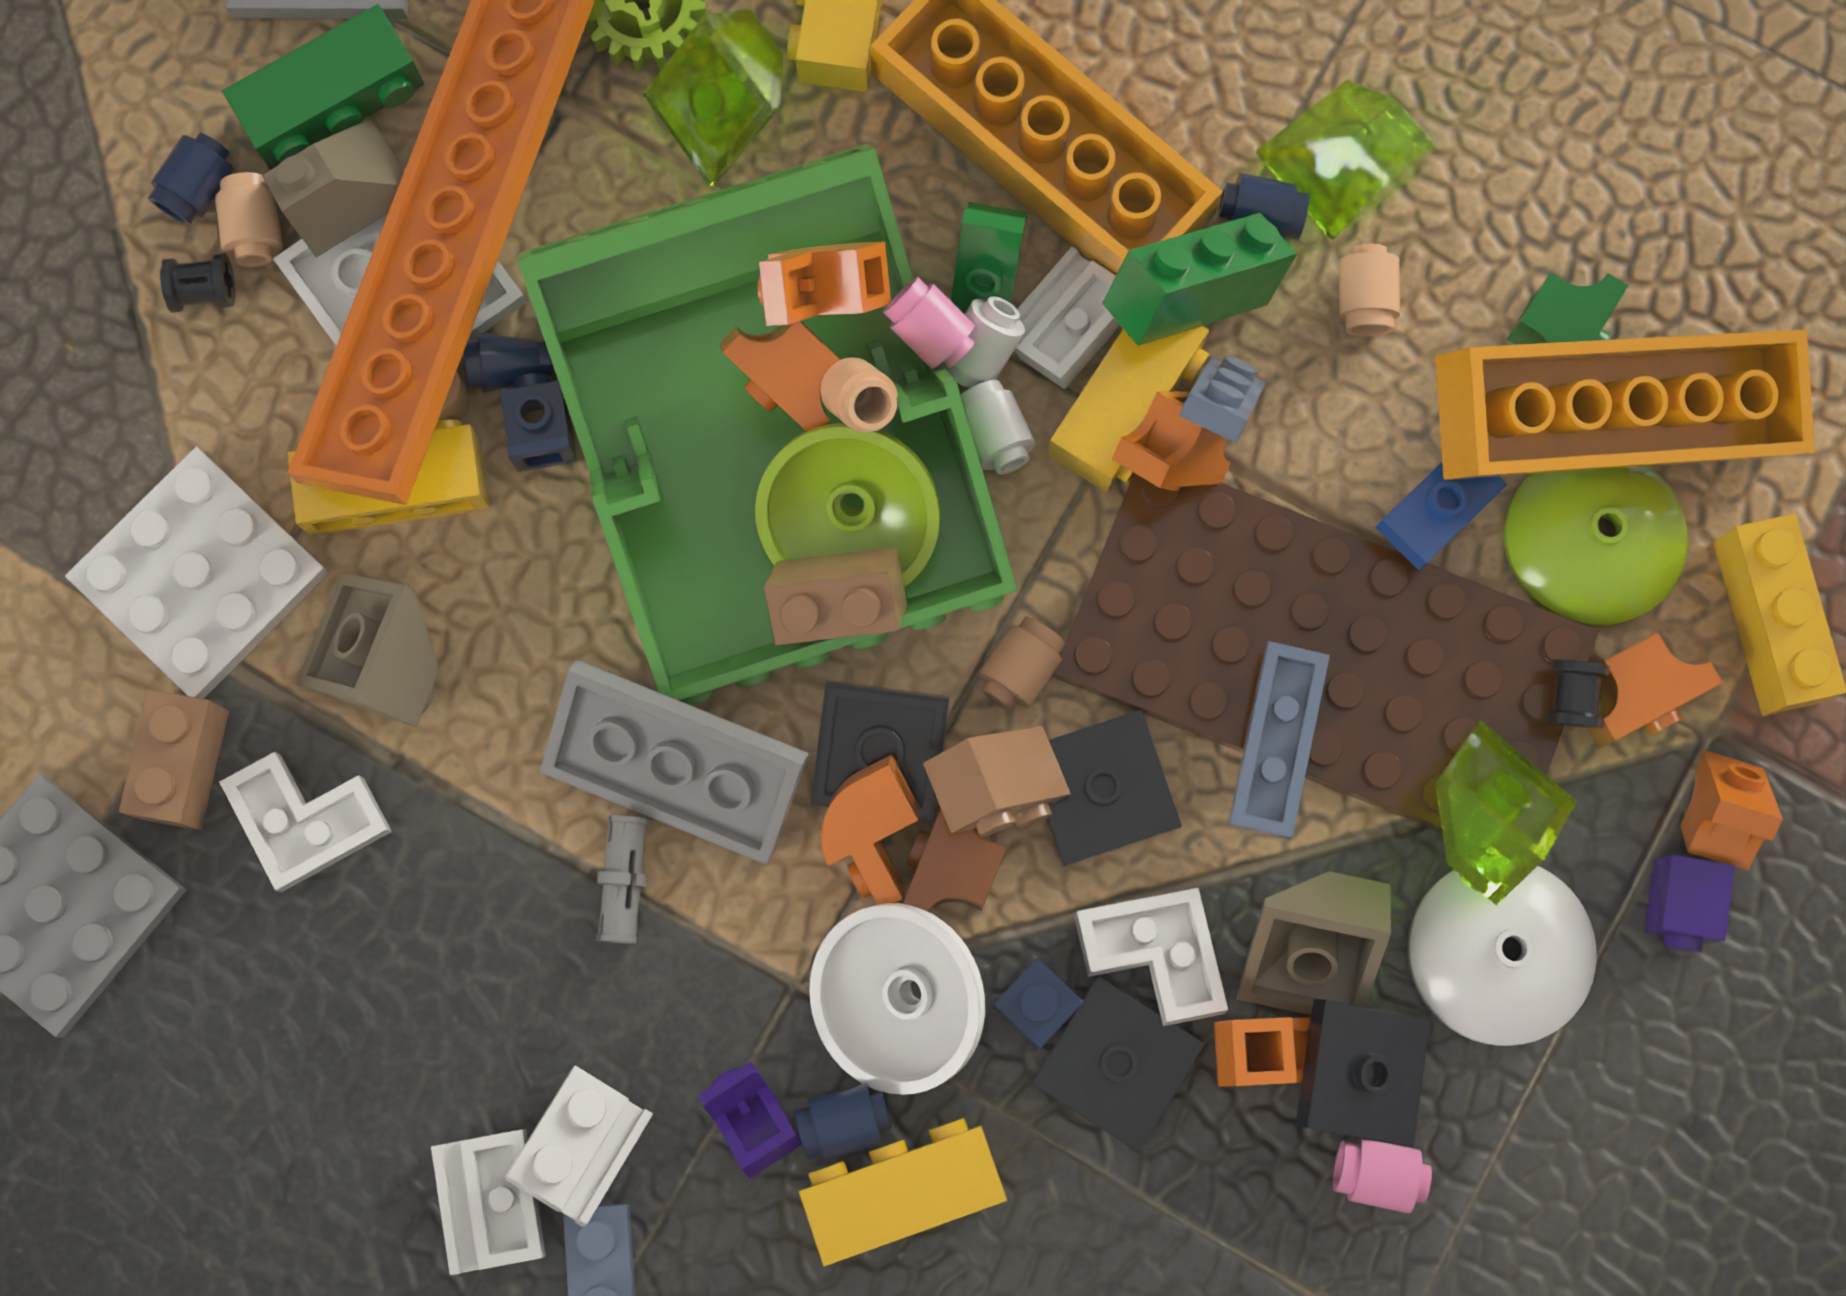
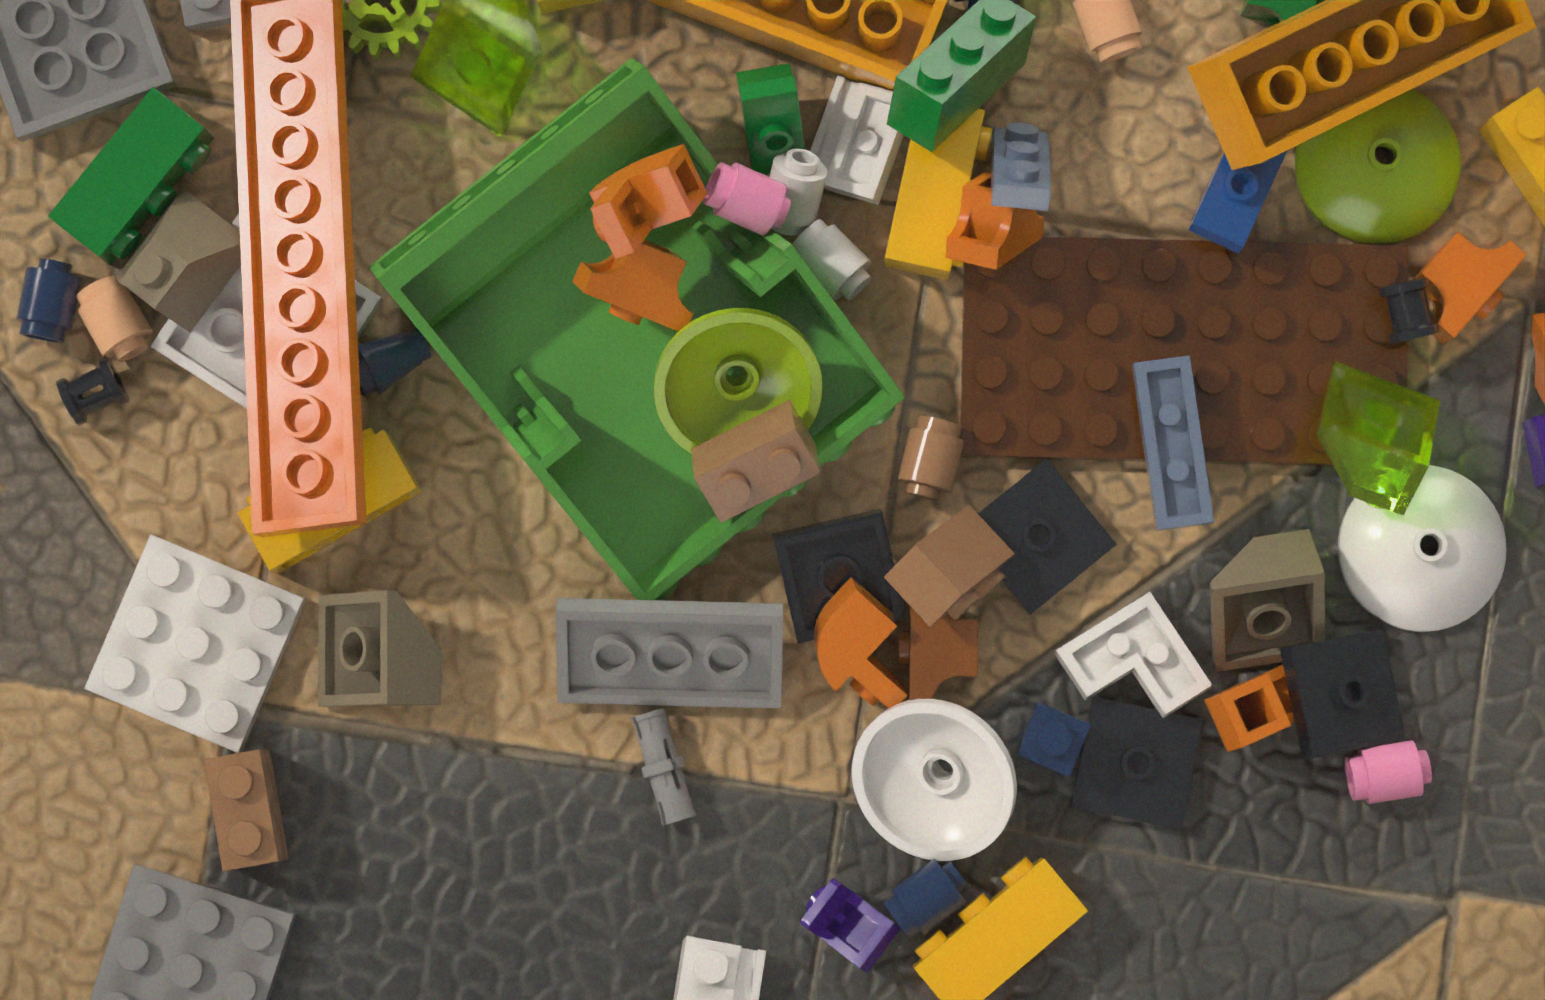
camera: 15 degrees left, 5 degrees up
(299, 837) = (377, 834): white plate -> none
(539, 443) = (445, 422): dark blue brick -> none
(859, 395) = (713, 285): light nougat brick -> none

